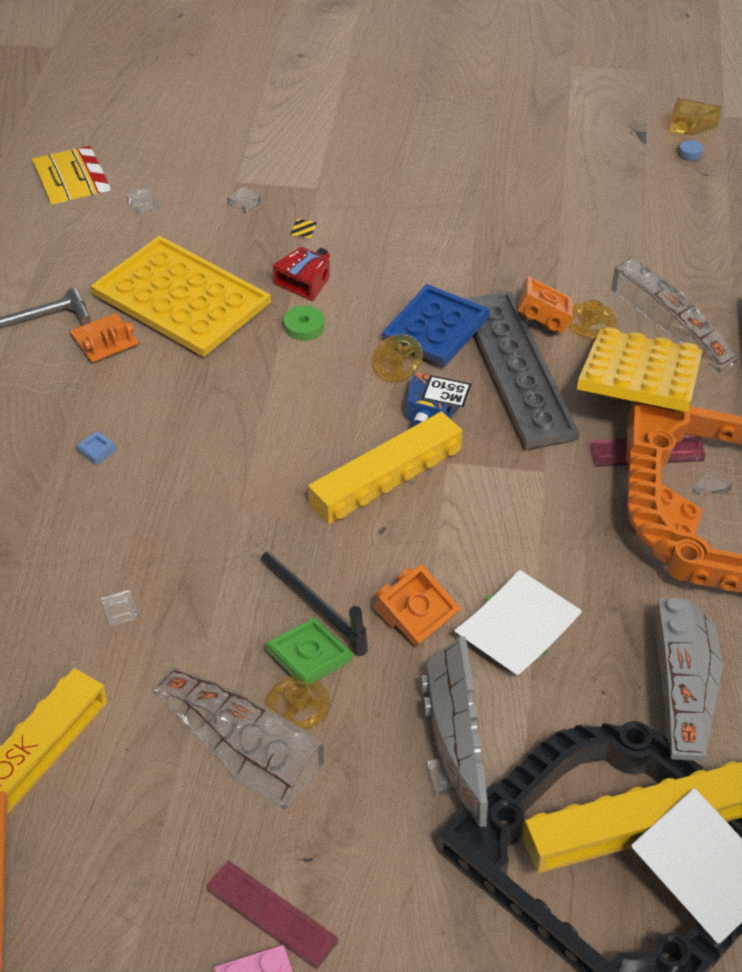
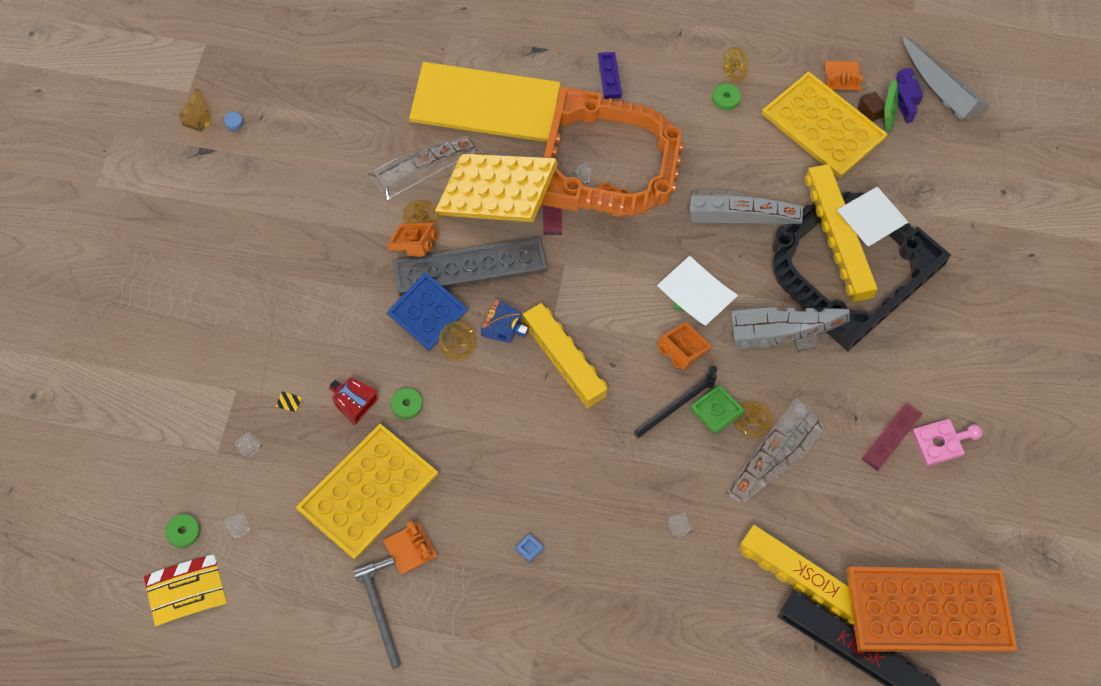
camera: 90 degrees left, 15 degrees up
(138, 163) = (182, 522): none -> bright green piece
(446, 391) = (503, 308): sticker -> none

